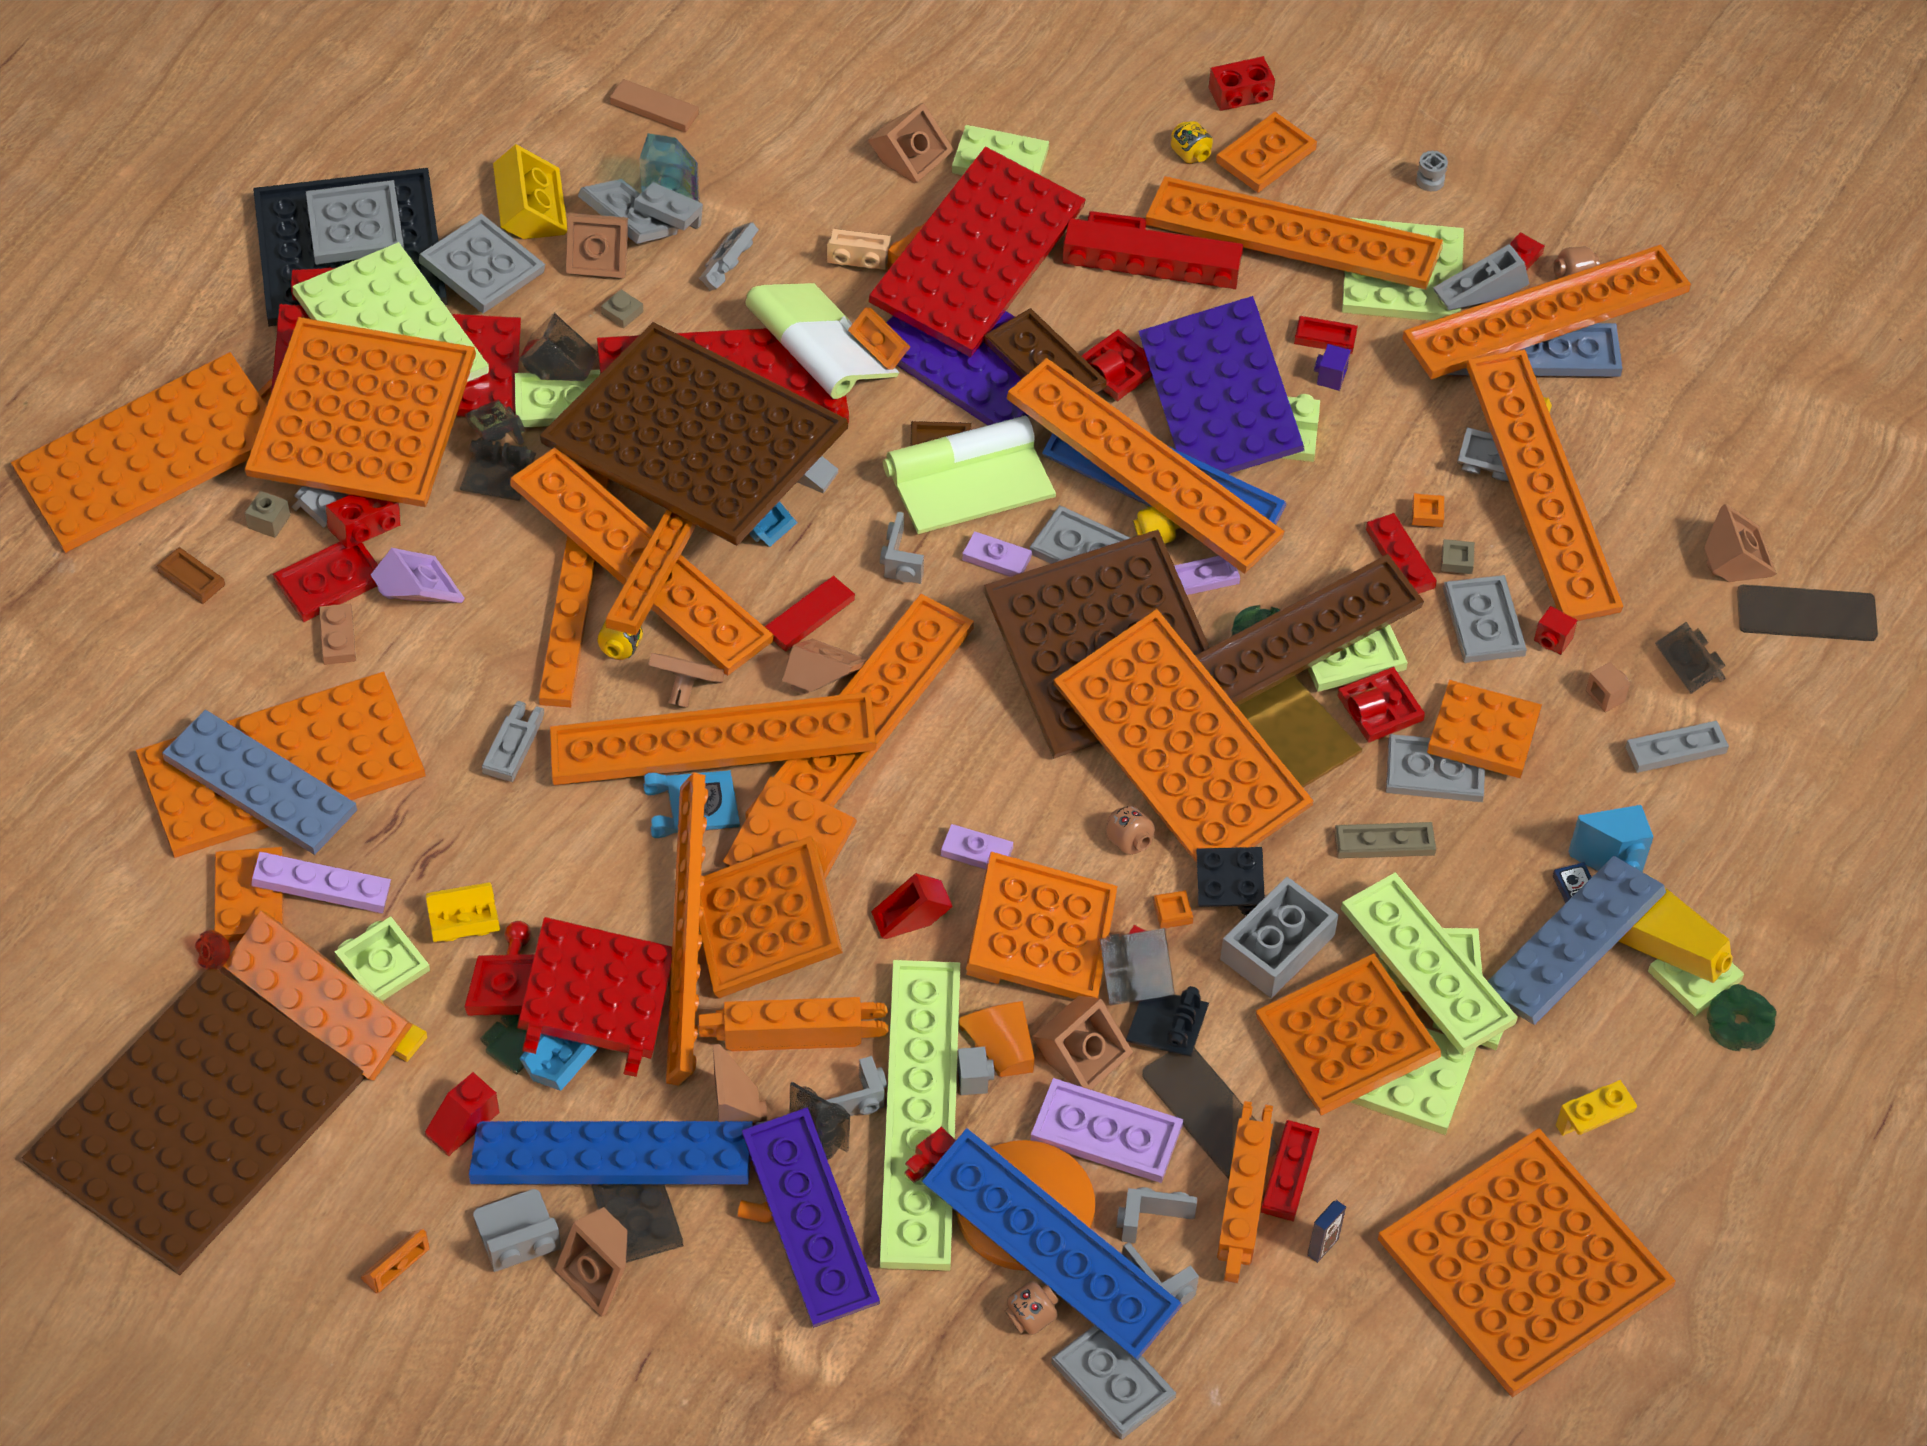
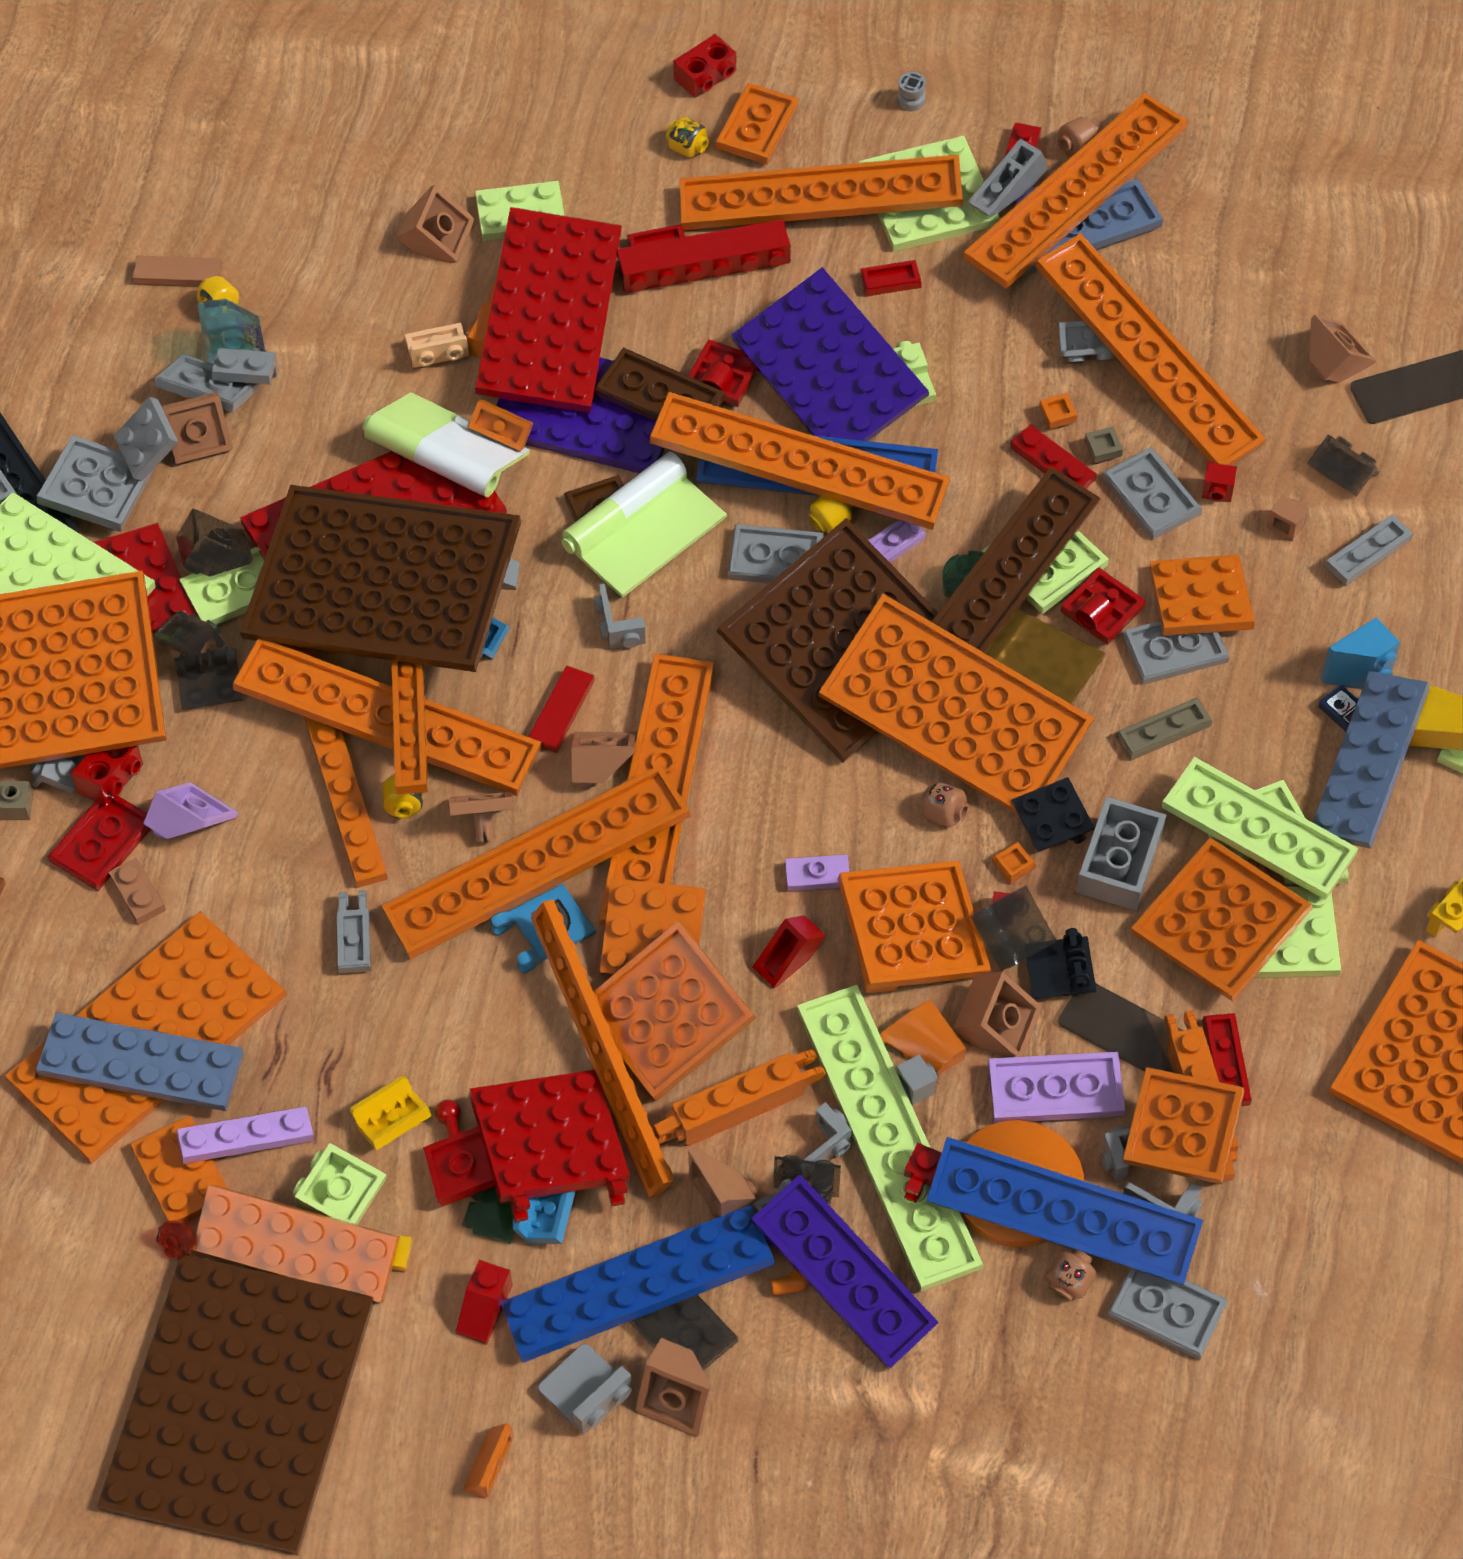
camera: 20 degrees left, 5 degrees up
(529, 195) = (100, 396): yellow slope -> none
(543, 237) = (145, 438): none -> light grey plate
(622, 308) = (245, 479): dark tan plate -> none
(682, 130) = (216, 289): none -> yellow head
(726, 255) = (319, 392): light grey hinge -> none
(996, 555) = (702, 591): lavender plate -> none
(1205, 1207) = (1183, 1125): none -> orange plate
(1326, 1230) = (1289, 1104): dark blue tile -> none
(1332, 367) = (913, 307): dark purple plate -> none

